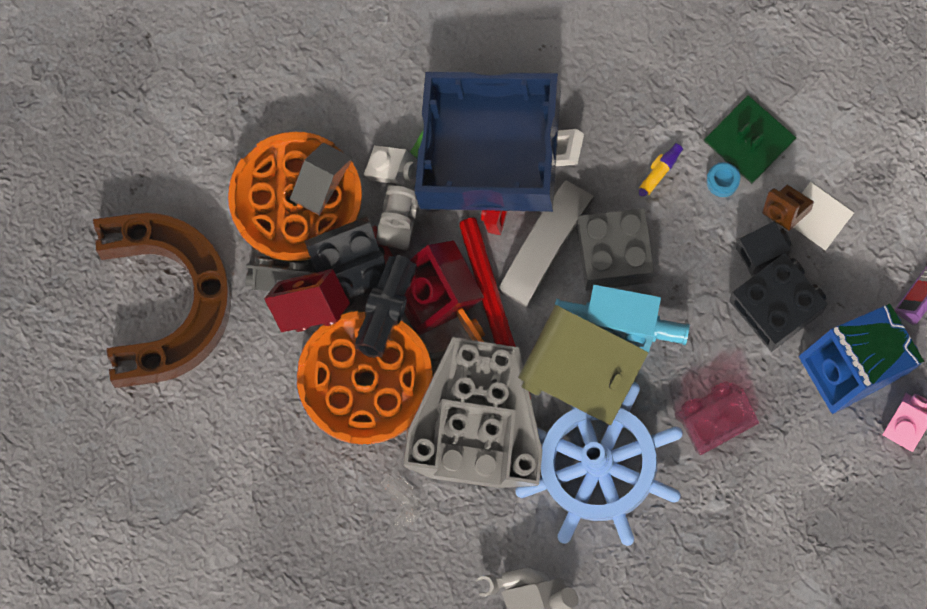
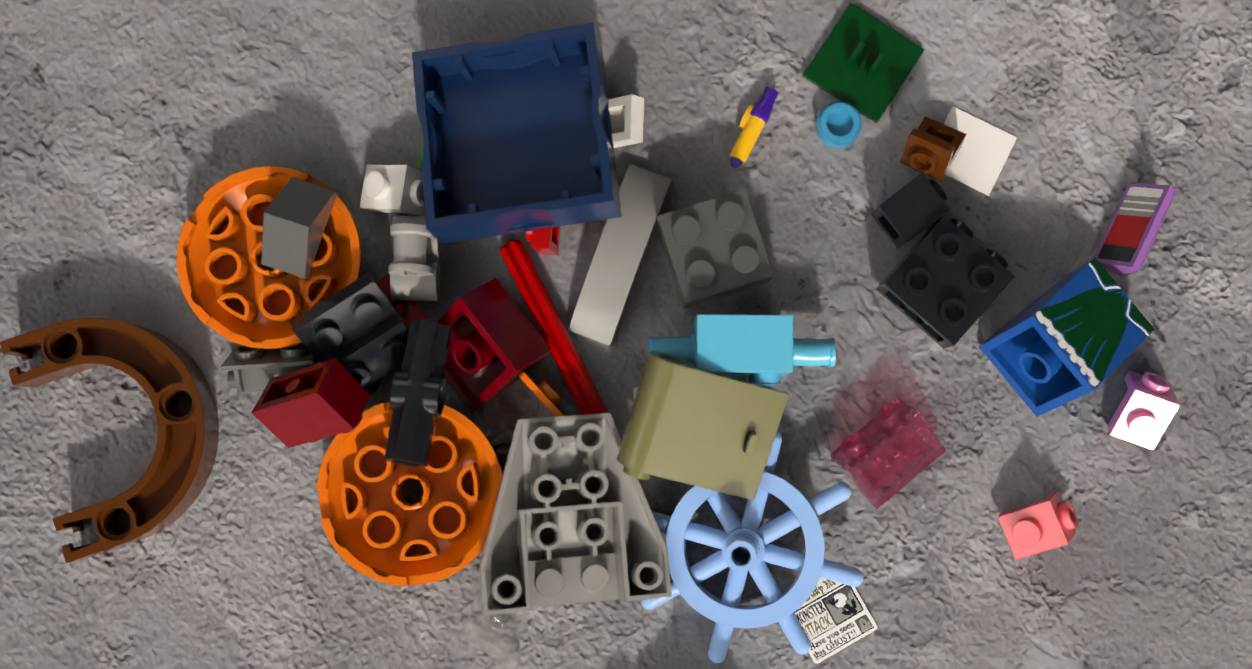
camera: 10 degrees left, 10 degrees up
(654, 529) = (834, 618): none -> sticker
(818, 489) = (1039, 526): none -> coral bracket

